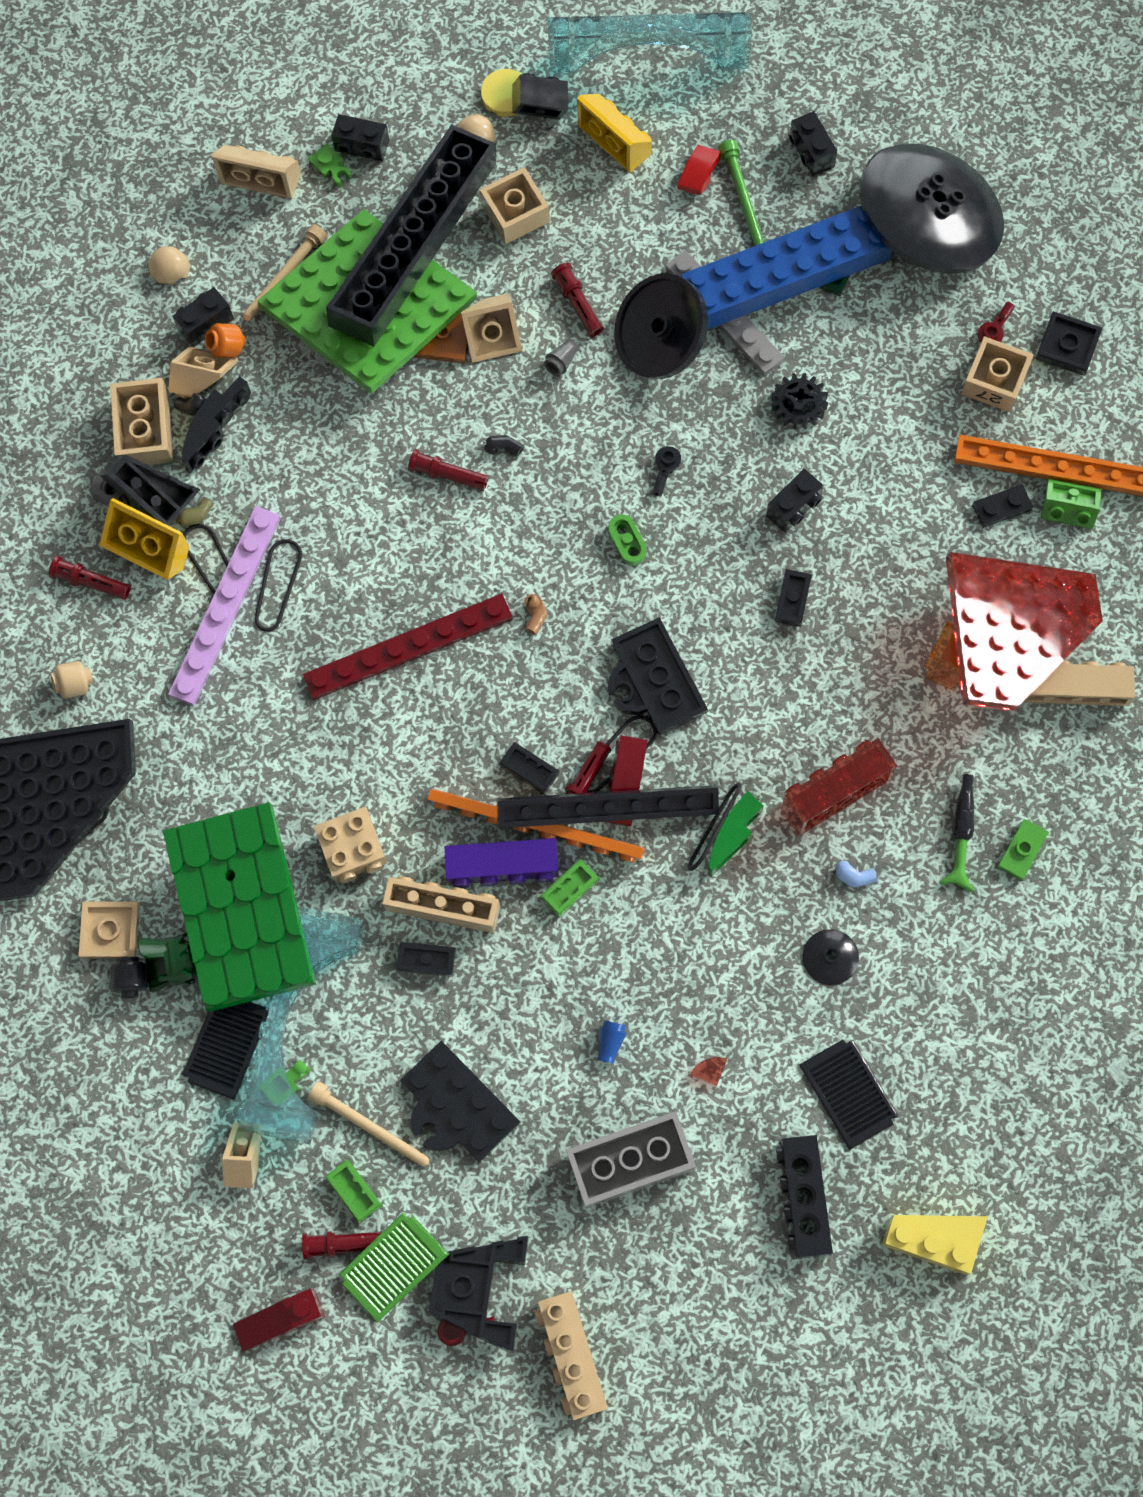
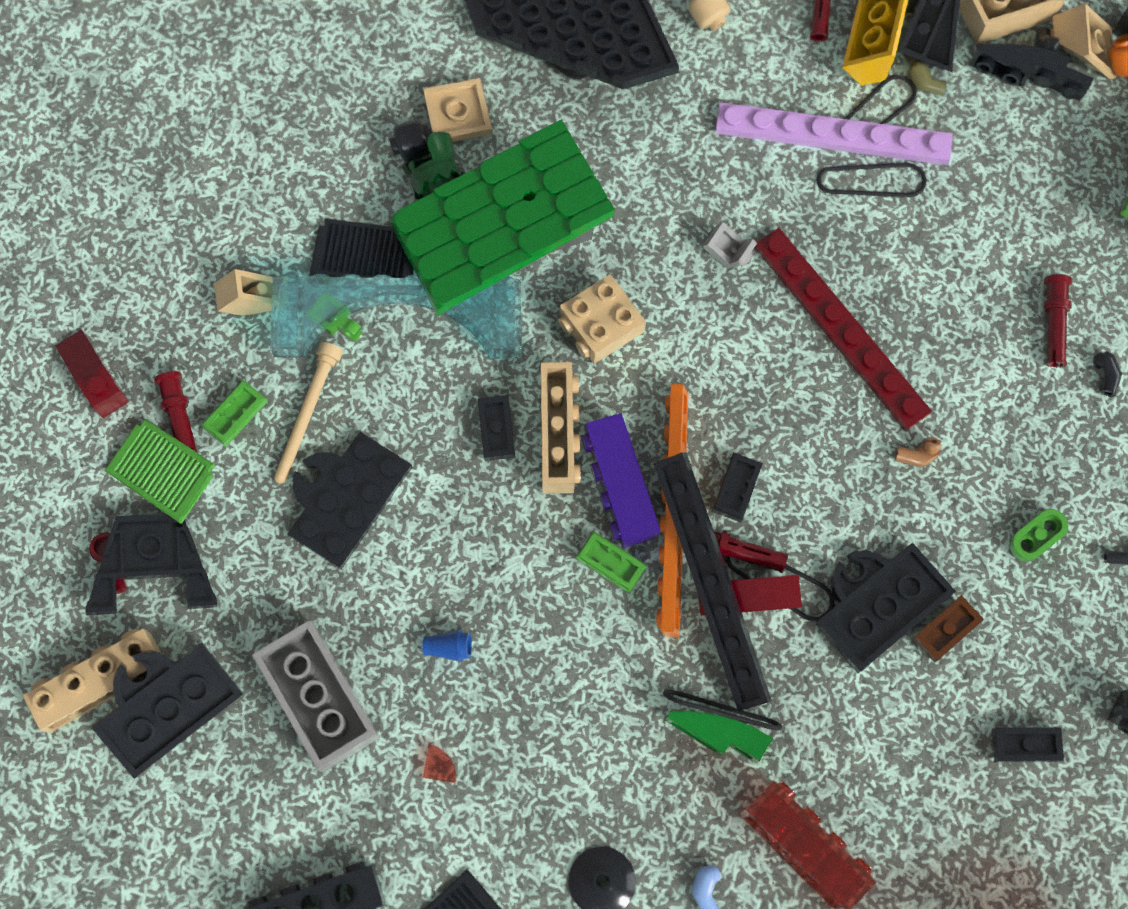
camera: 70 degrees right, 0 degrees up
(310, 720) = (729, 247): none -> light grey bracket
(609, 1295) = (163, 705): none -> black plate
(687, 632) = (948, 628): none -> reddish brown plate

